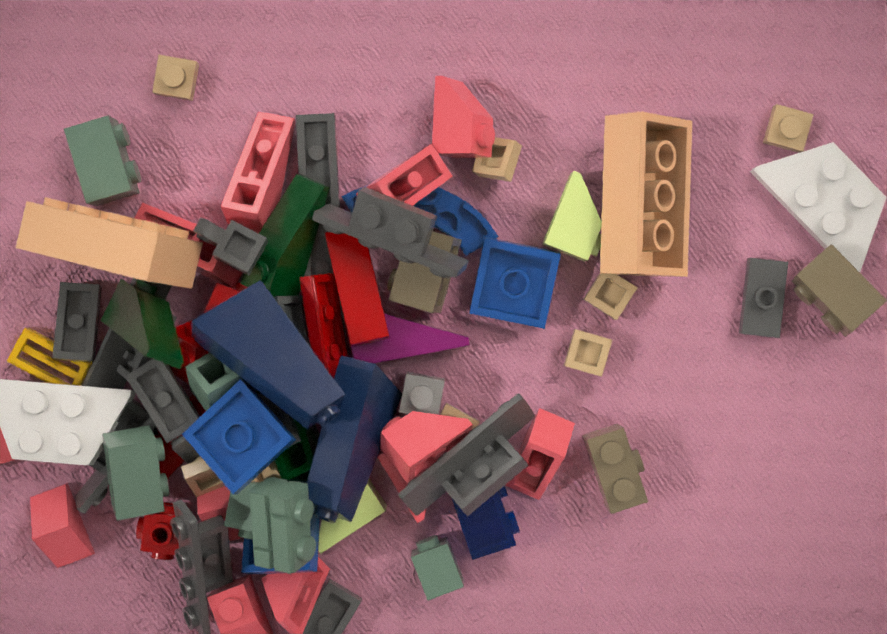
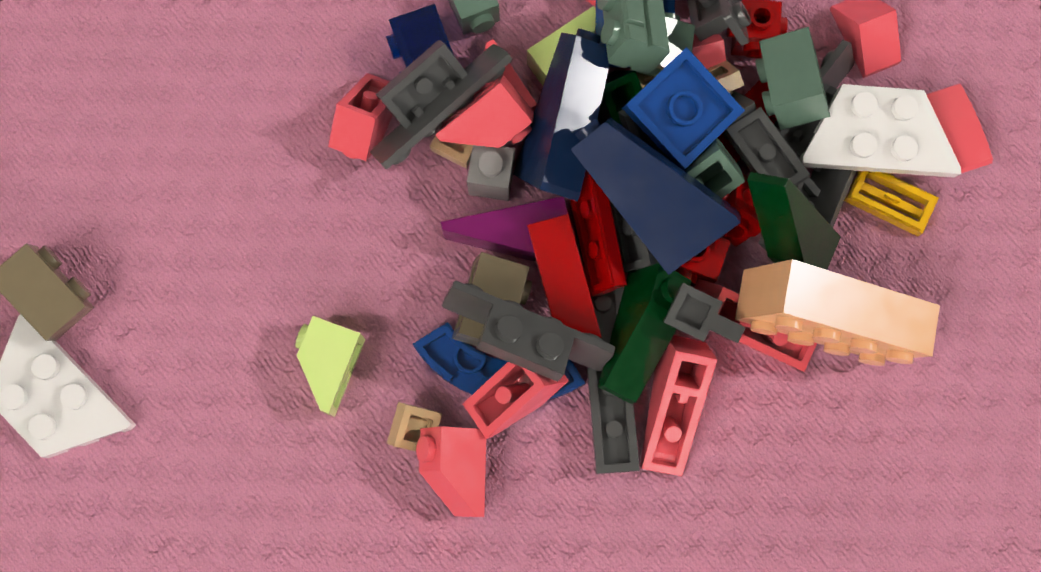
camera: 175 degrees right, 10 degrees down
(77, 322) = (866, 238): dark grey plate -> none
(103, 160) = (850, 414): sand green brick -> none
(175, 77) = (776, 511): tan plate -> none
(514, 282) = (393, 293): blue plate -> none
(587, 352) = (314, 222): tan plate -> none
(610, 294) = (290, 285): tan plate -> none
(616, 468) = (284, 102): dark tan brick -> none
(646, 195) = (248, 385): light nougat brick -> none
(763, 297) = (124, 286): dark grey plate -> none
(788, 128) = (91, 472): tan plate -> none

